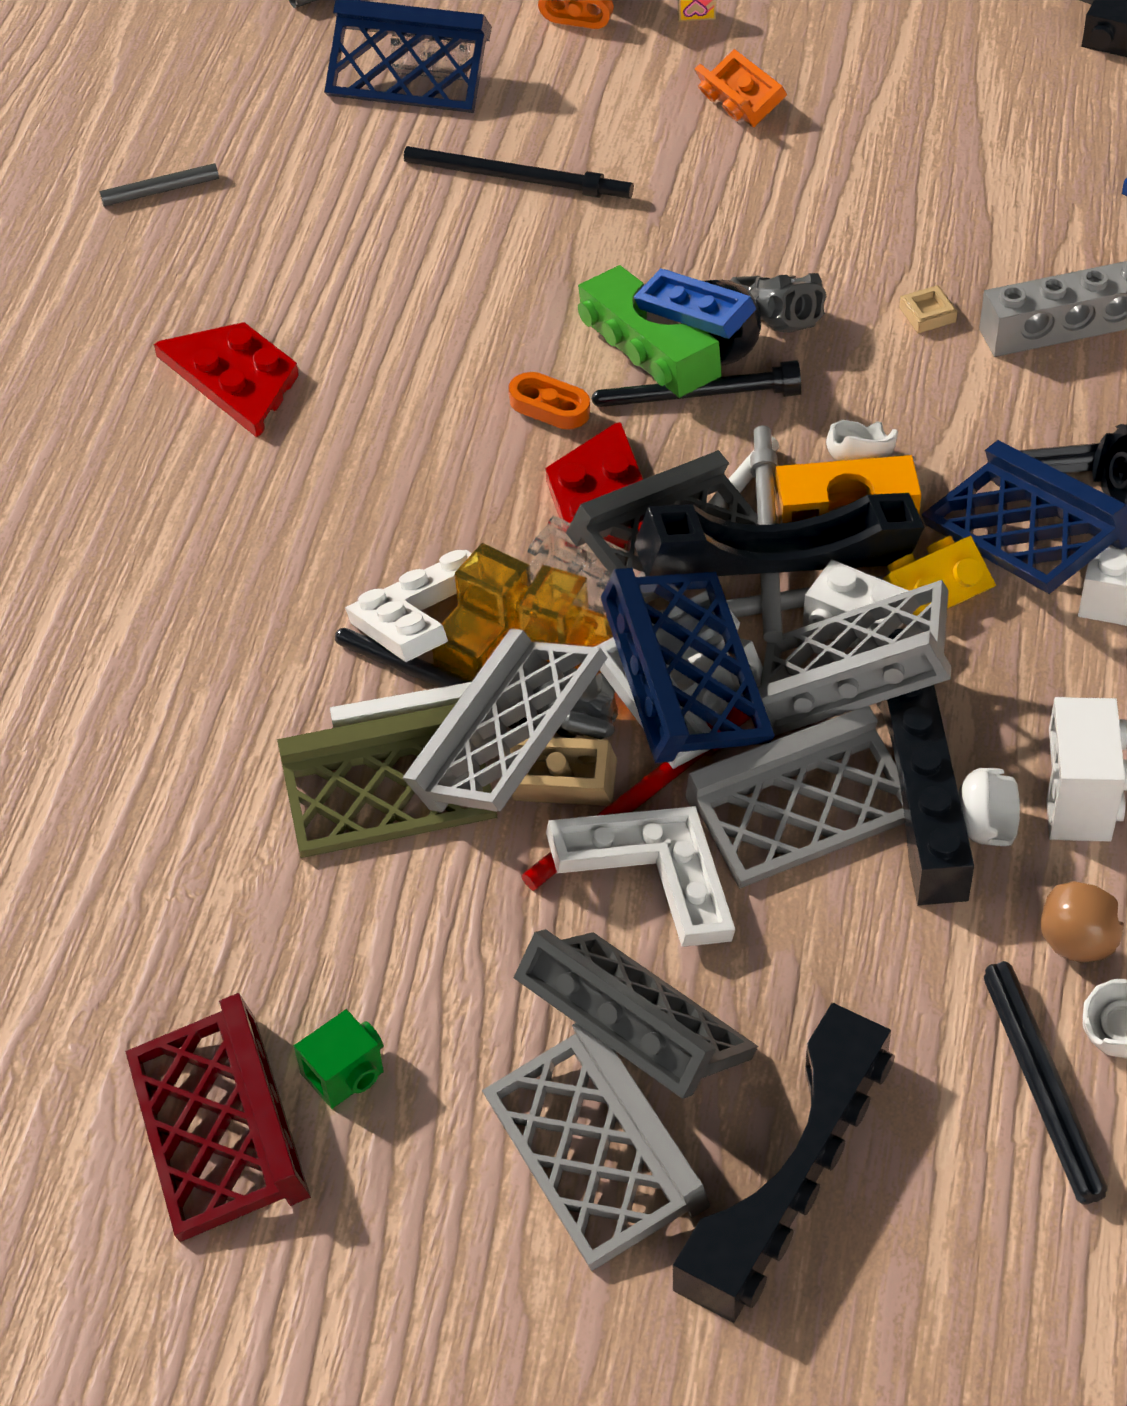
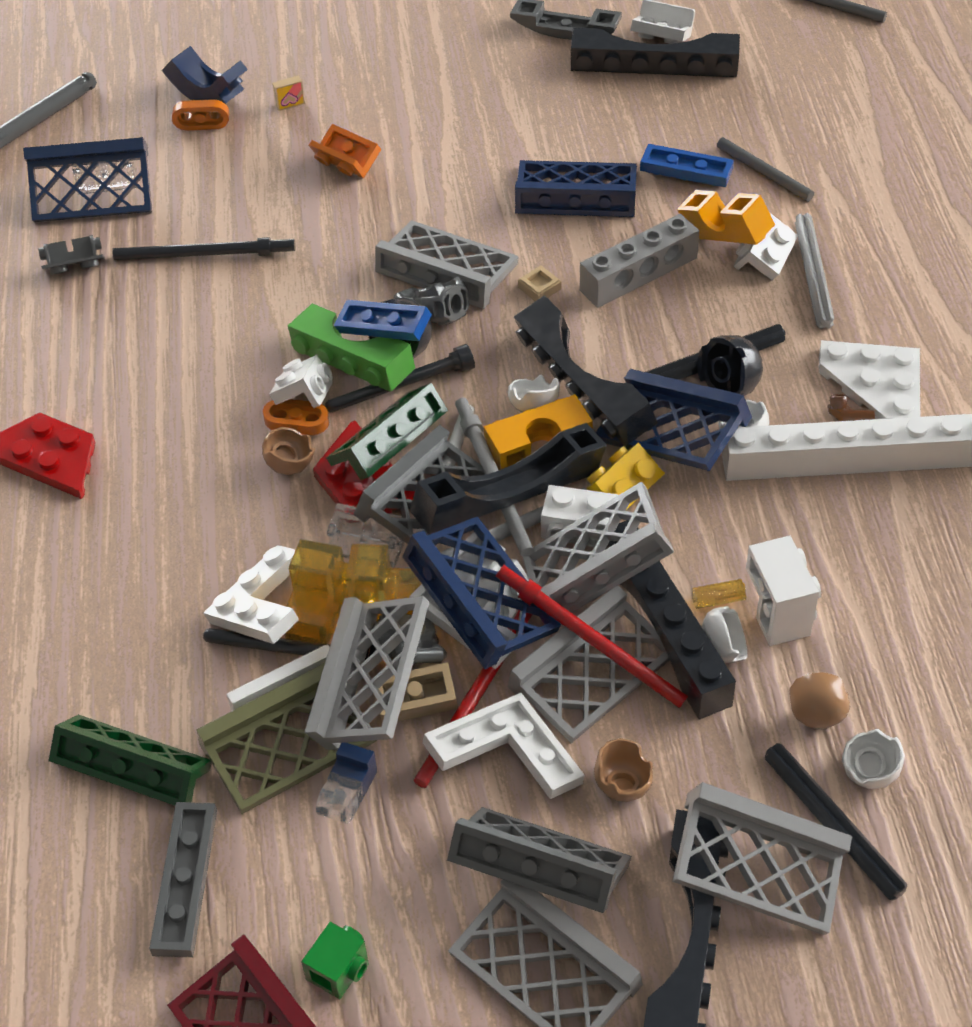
camera: 20 degrees left, 0 degrees up
(189, 755) = (127, 759): none -> dark green fence
(199, 913) = (183, 880): none -> dark grey plate
(368, 144) = (59, 258): none -> dark grey hinge
(436, 855) = (347, 783): none -> leg
(521, 438) = (287, 451): none -> medium nougat hair
(582, 357) = (303, 377): none -> white bracket
(658, 445) = (390, 431): none -> fence
(747, 684) = (531, 593): none -> red bar
(780, 252) = (422, 269): none -> light grey fence
(786, 937) = (623, 770): none -> medium nougat hair
(948, 1058) = (774, 826): none -> light grey fence
(960, 479) = (618, 405): none -> black arch
(1006, 754) = (718, 593): none -> clear yellow piece
(1032, 213) = (583, 198): none -> dark blue fence

